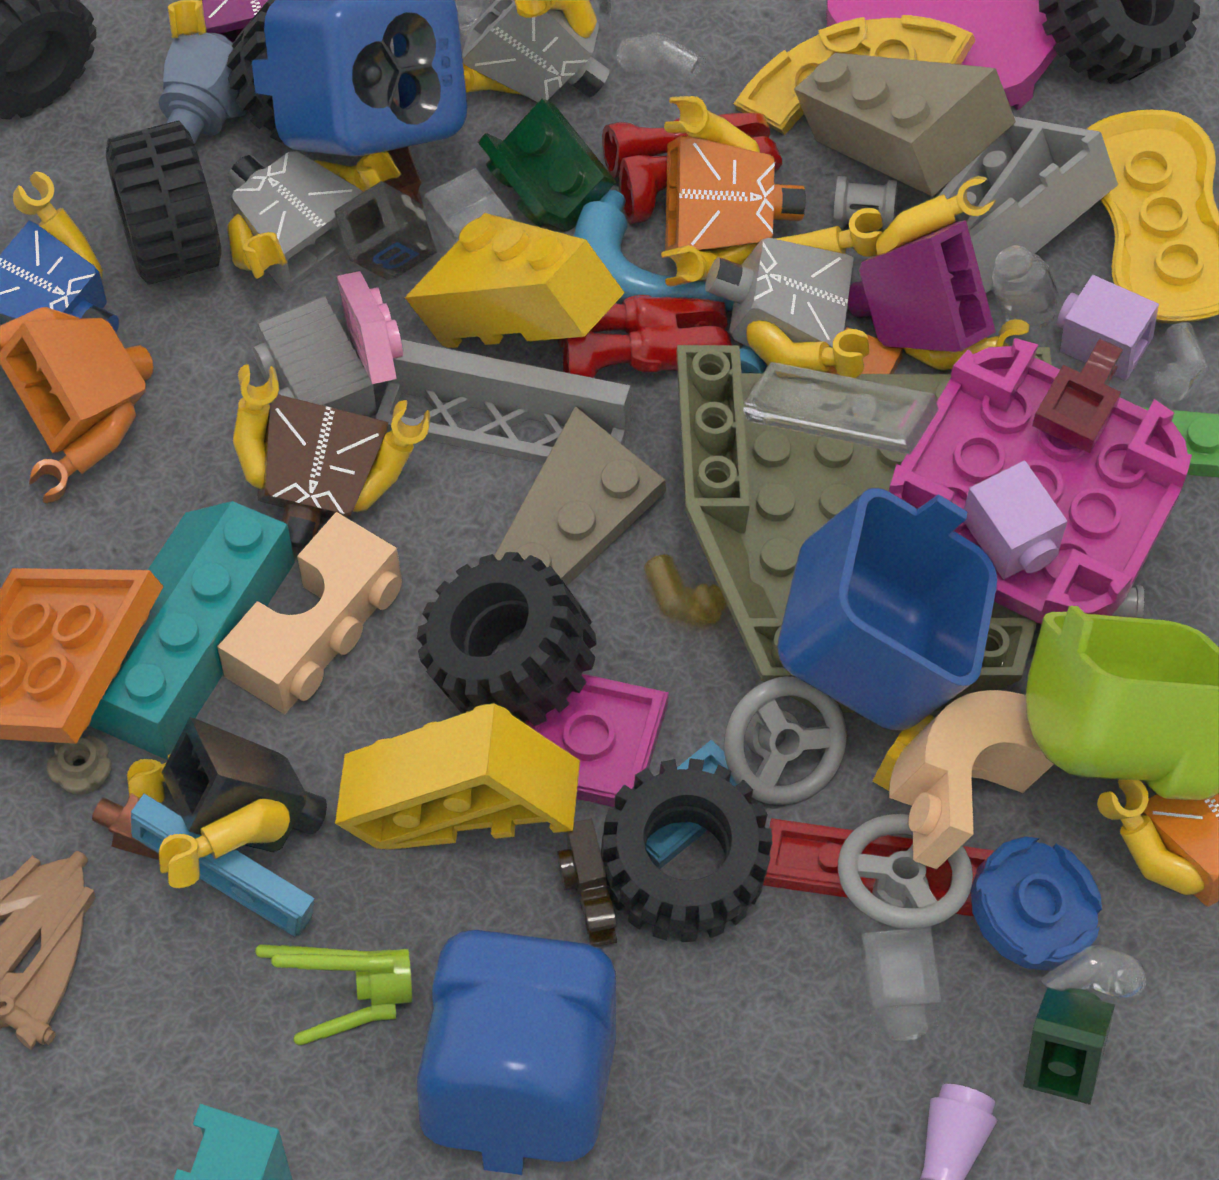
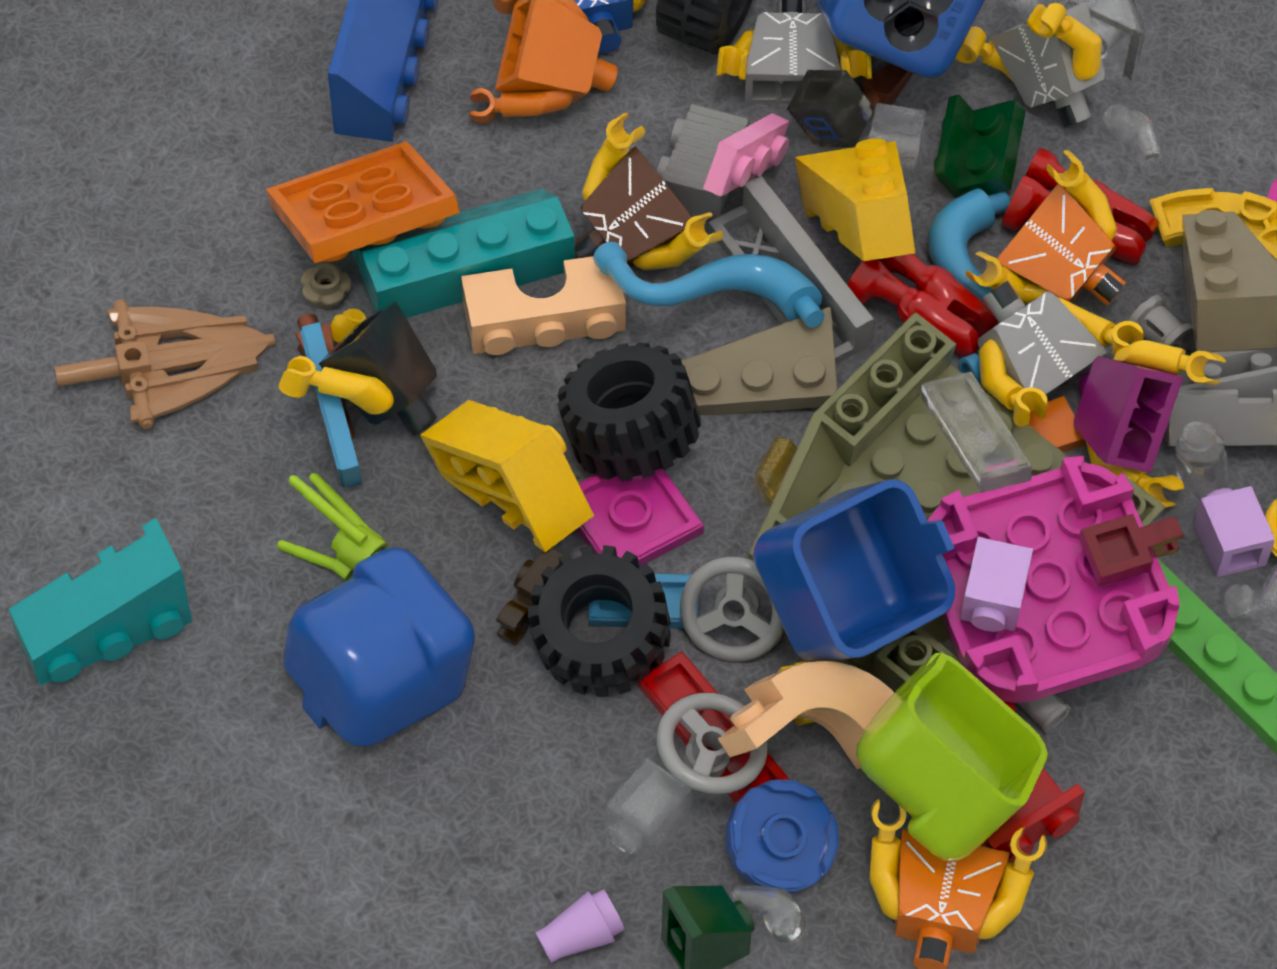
camera: 40 degrees right, 0 degrees up
(471, 434) = (746, 272): none -> dark azure animal

